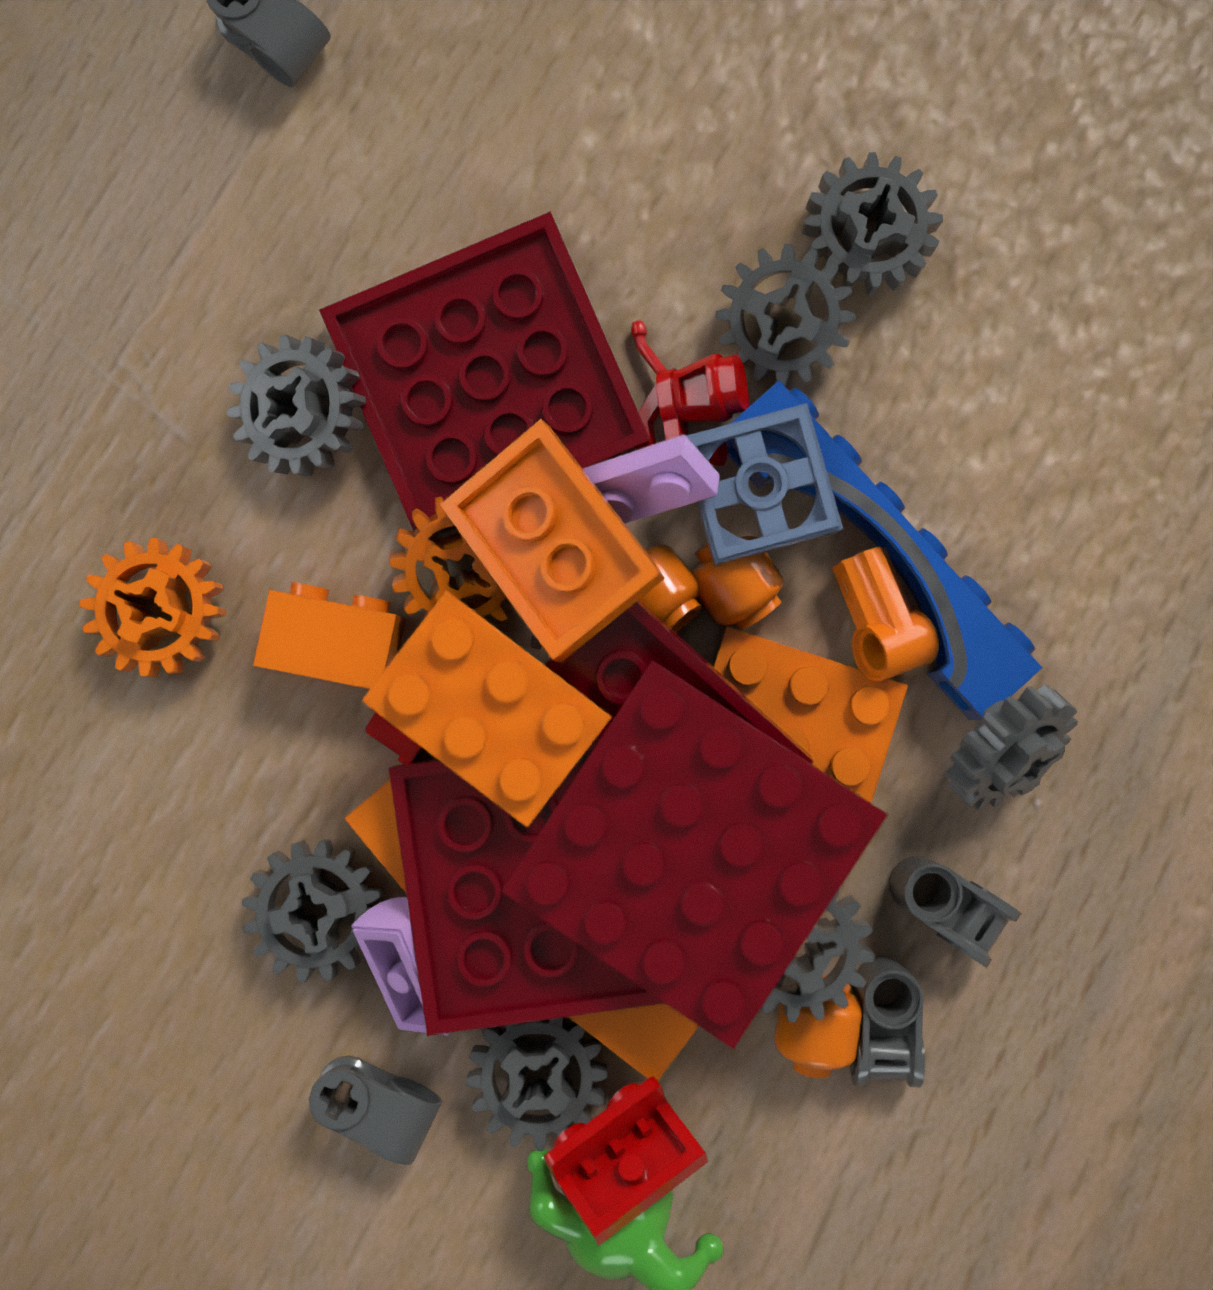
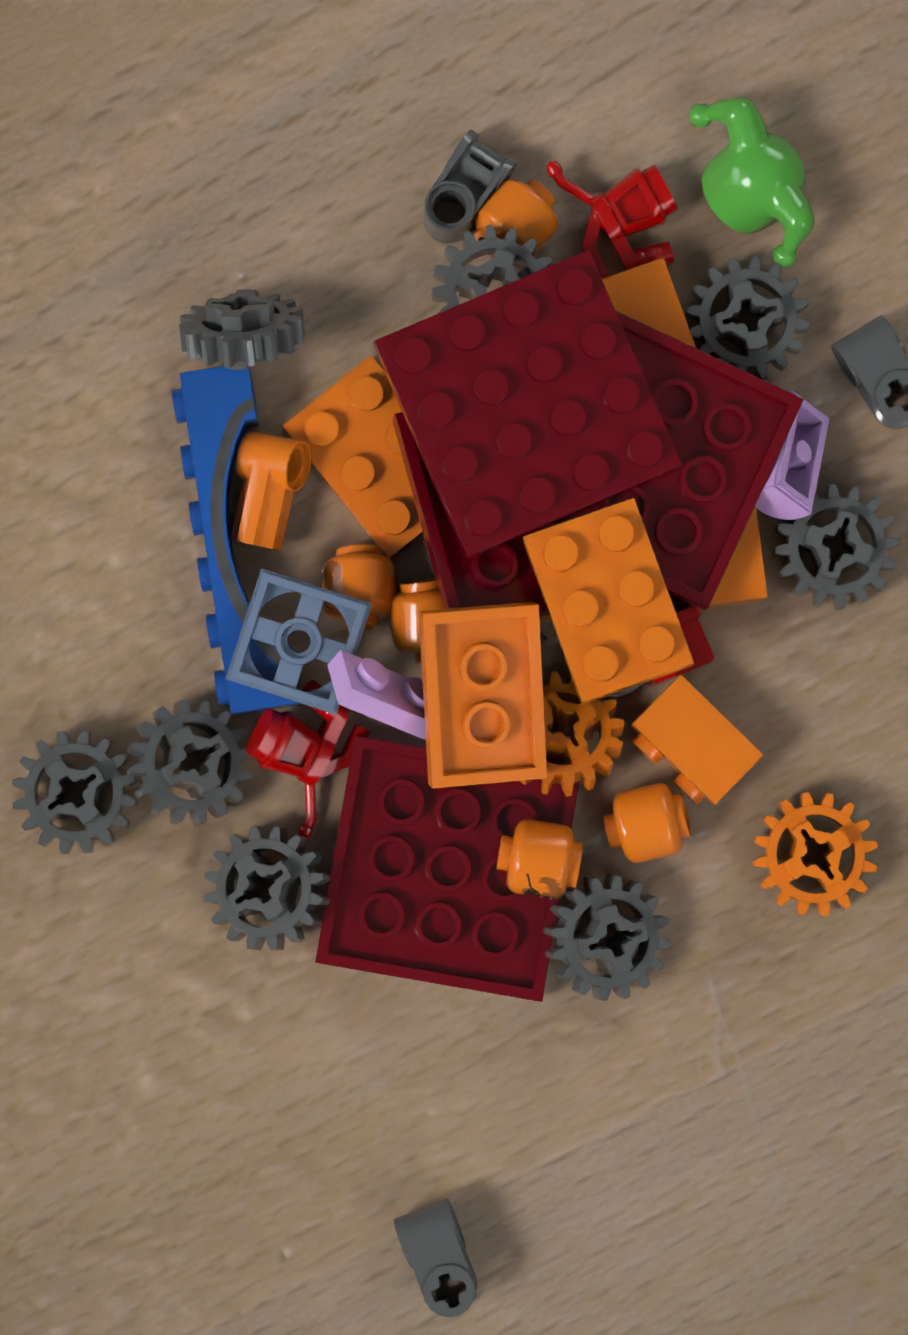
camera: 150 degrees left, 0 degrees up
(325, 535) = (648, 823): none -> orange head
(400, 431) = (540, 859): none -> orange head
(612, 231) = (281, 908): none -> dark grey gear
(624, 1158) = (718, 221): red bracket -> none
(724, 1099) = (627, 208): none -> red piece
(958, 911) = (358, 233): dark grey piece -> none

